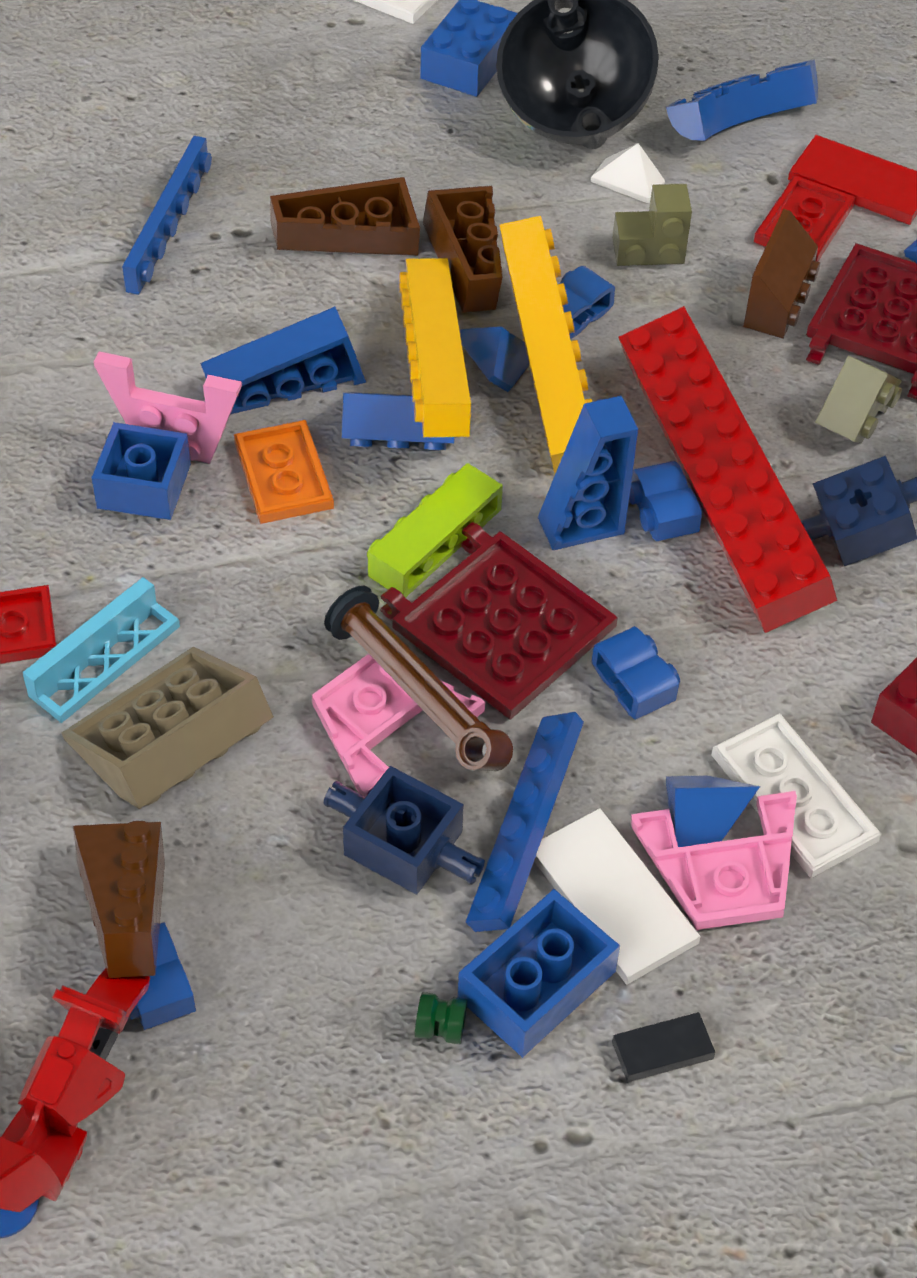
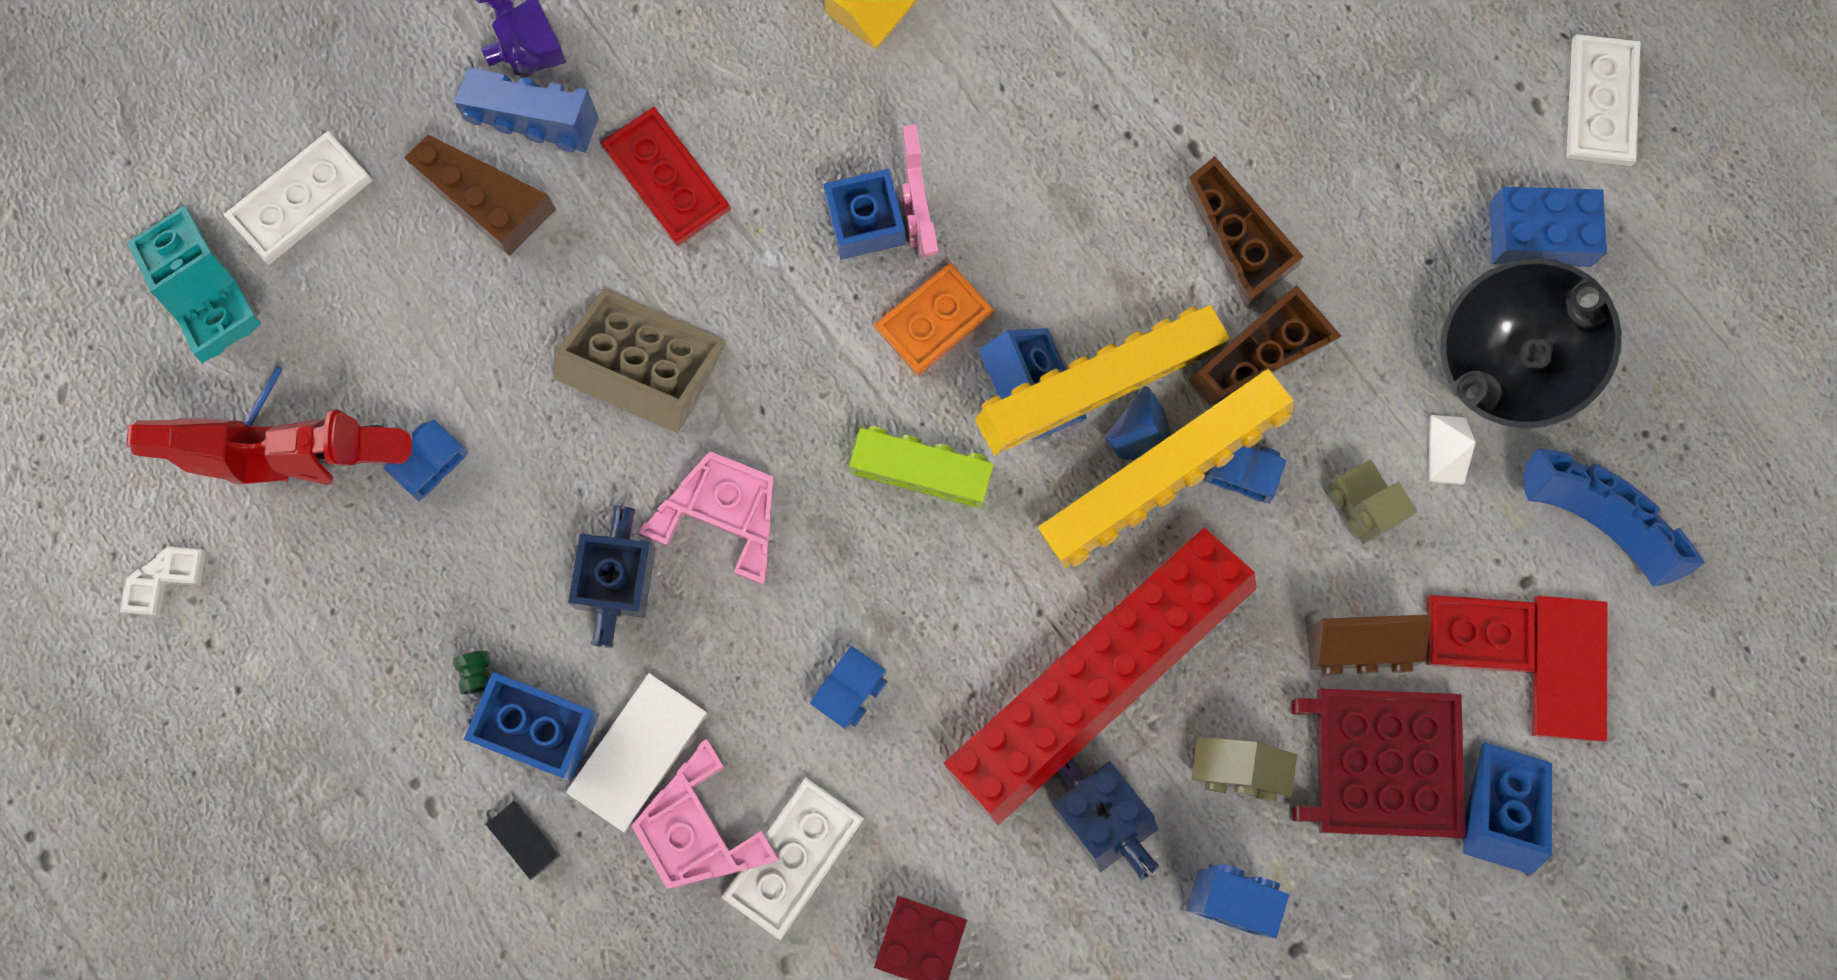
camera: 65 degrees right, 25 degrees up
(90, 642) = (686, 265): medium azure fence -> none
(124, 887) = (463, 408): reddish brown wedge -> none
(165, 216) = (1184, 77): blue plate -> none
(290, 362) = (1037, 264): blue wedge -> none
(355, 616) = (710, 598): reddish brown piece -> none
(501, 621) = (853, 562): dark red plate -> none
(524, 823) = (670, 661): blue plate -> none
(593, 477) = (1005, 574): blue wedge -> none
(665, 501) = (1044, 640): blue brick -> none
(705, 807) = (743, 790): blue slope -> none

